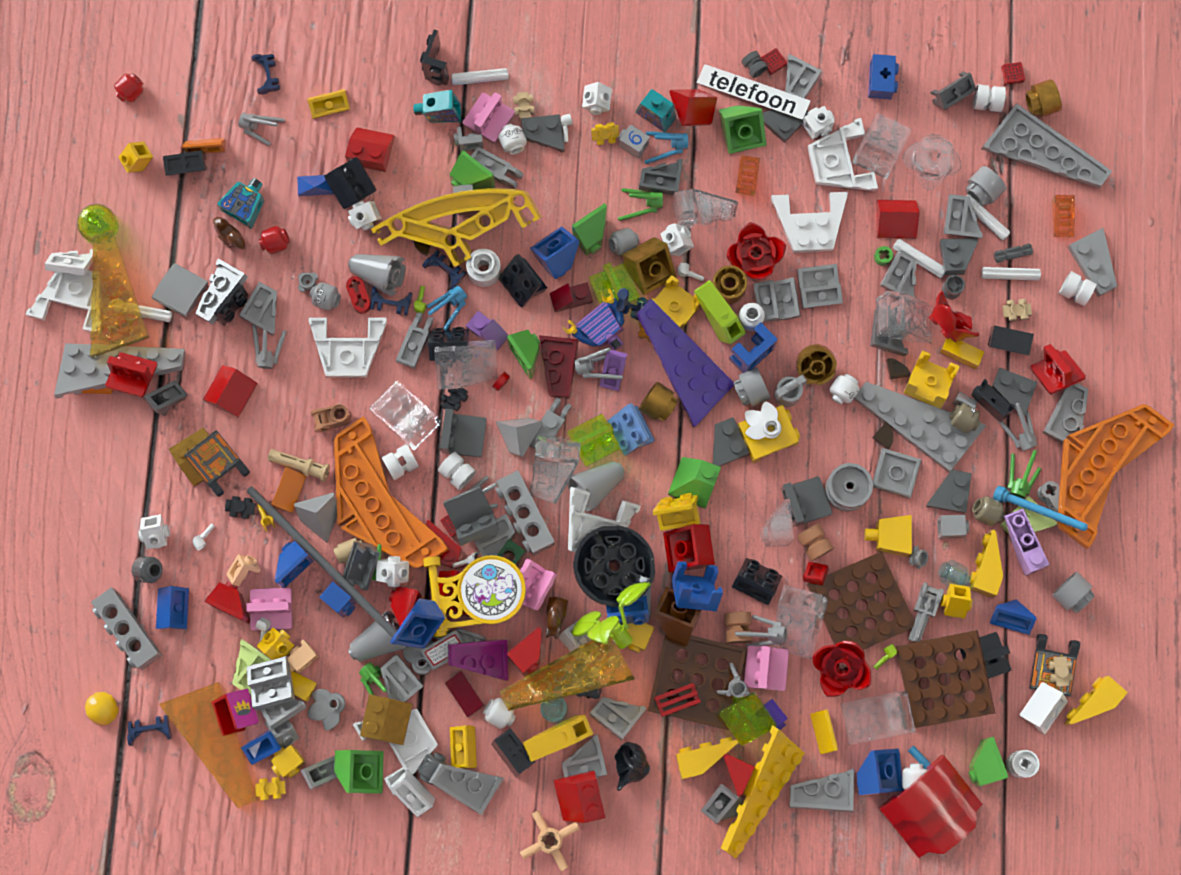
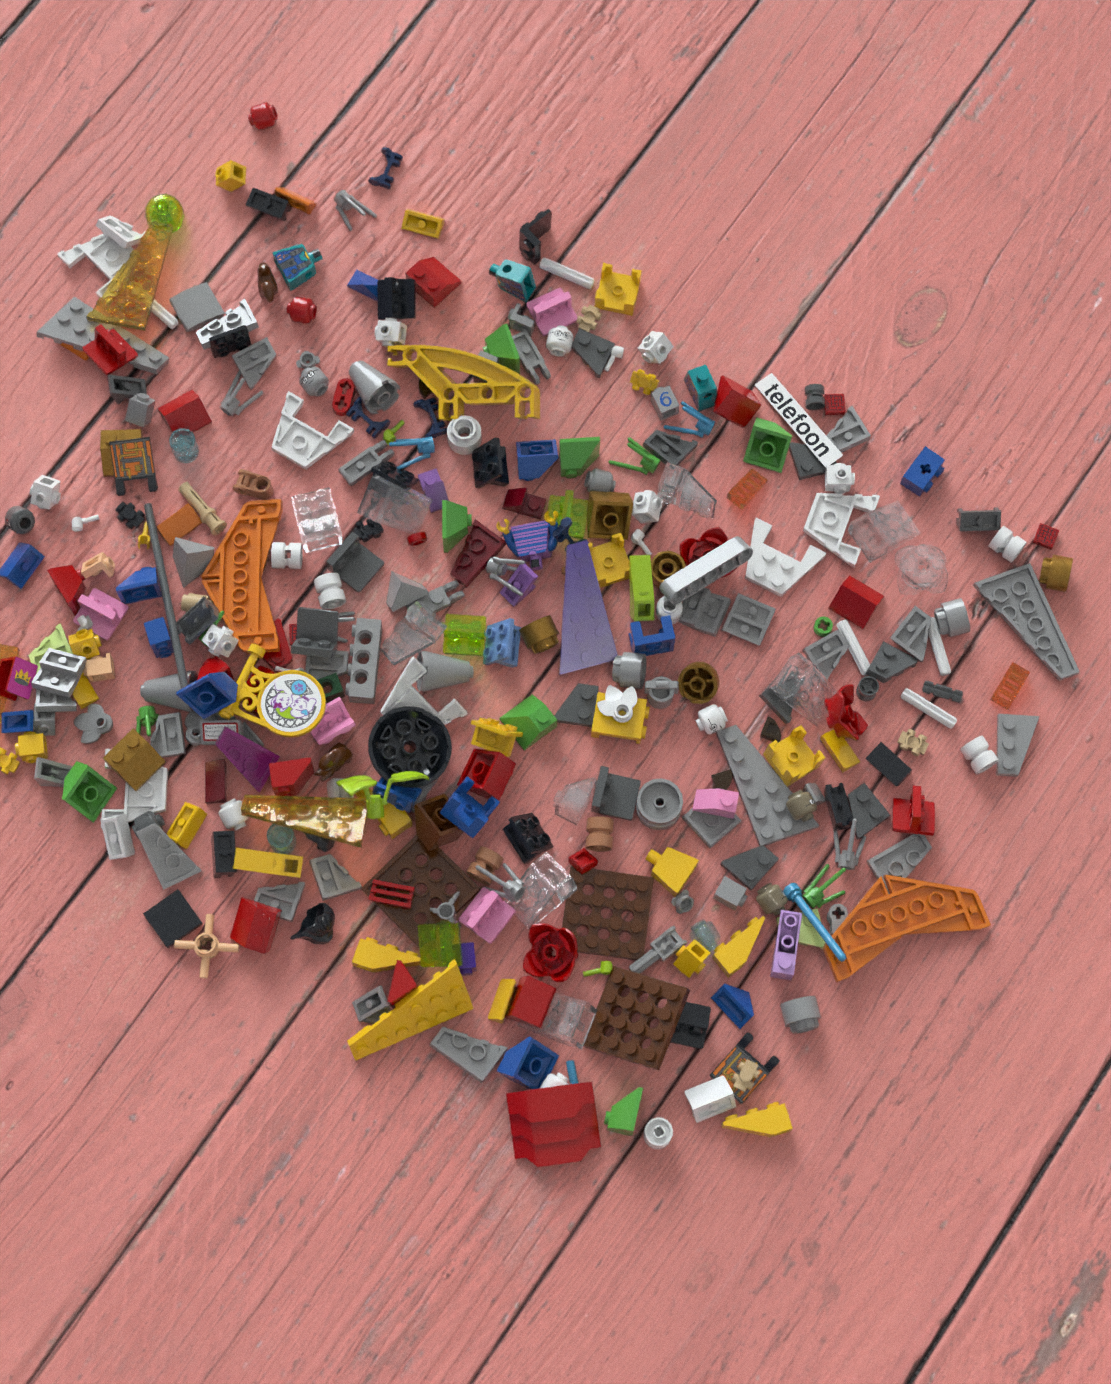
camera: 30 degrees right, 5 degrees down
(190, 410) = (140, 410): none -> light grey brick
(249, 418) = (184, 445): none -> clear light blue wheel
(504, 834) = (172, 918): none -> black tile
(533, 67) = (617, 291): none -> yellow panel
(764, 265) = (706, 570): none -> beam
(850, 719) = (530, 1001): none -> red slope
(894, 457) = (716, 802): none -> bright pink slope

